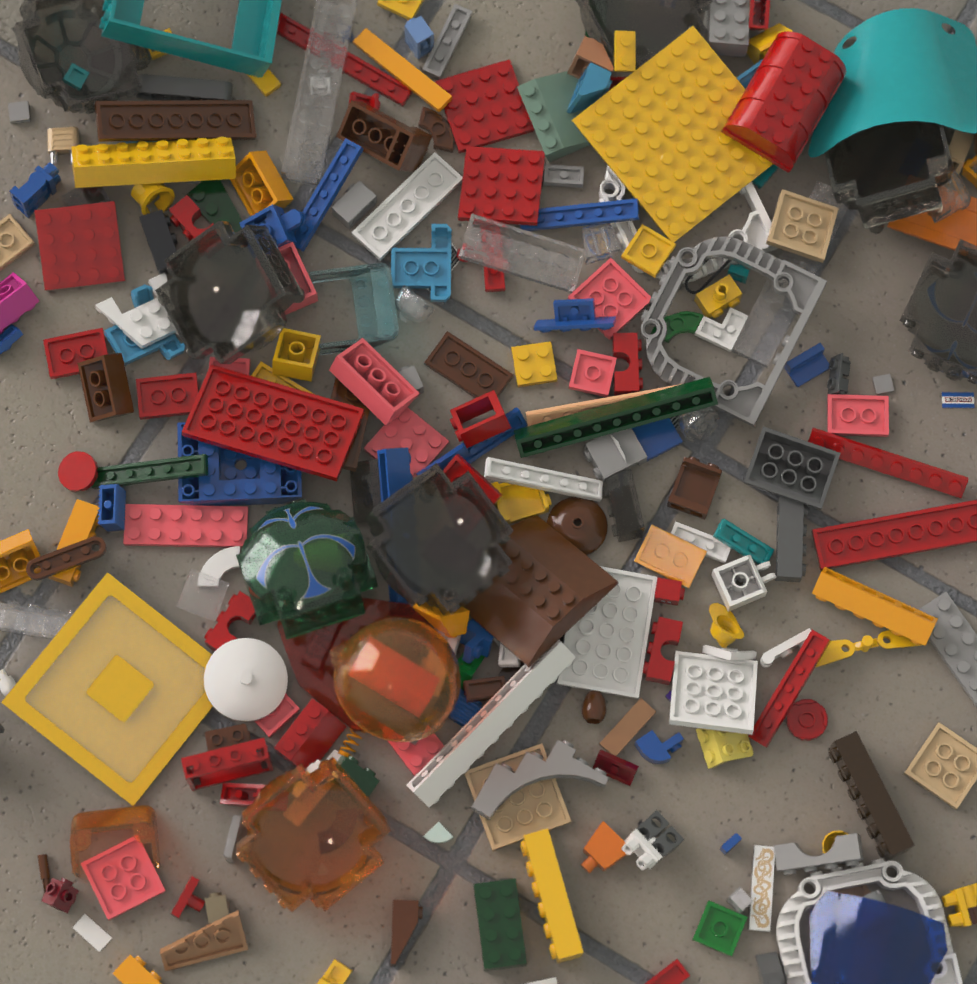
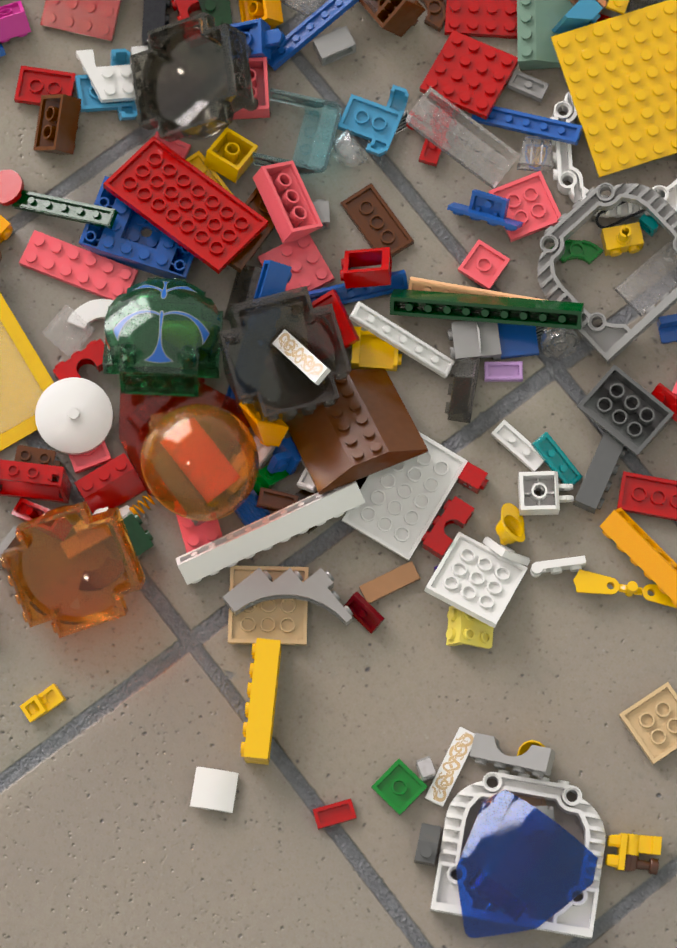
camera: 25 degrees right, 0 degrees up
(112, 507) = (20, 228): blue brick -> none
(166, 395) = (105, 149): red plate -> none
(403, 925) = (126, 675): reddish brown slope -> none
(407, 206) = (380, 63): white plate -> none
(438, 834) = (187, 611): light aqua tile -> none
(457, 535) = (301, 357): none -> white tile
(500, 925) = (207, 709): dark green brick -> none
(534, 364) = (436, 239): yellow plate -> none
(593, 526) = (428, 399): reddish brown dish -> none
(594, 707) = (366, 553): reddish brown animal -> none
(603, 849) = (325, 679): orange torso -> none
(627, 347) = (522, 253): red arch -> none
(647, 846) = (369, 688): hips -> none
(648, 250) = (575, 175): yellow tile -> none
(654, 473) = (503, 371): none -> lavender tile
(655, 751) = (406, 612): blue brick -> none
(670, 556) = (487, 448): light orange tile -> none
(694, 487) = (533, 397): reddish brown panel -> none
(722, 334) = (613, 273): white plate -> none
(730, 843) = (438, 717): blue tile -> none
(789, 688) = (545, 601): red plate -> none
(807, 719) = (551, 635): red tile -> none
(870, 796) = (579, 723): dark brown brick -> none

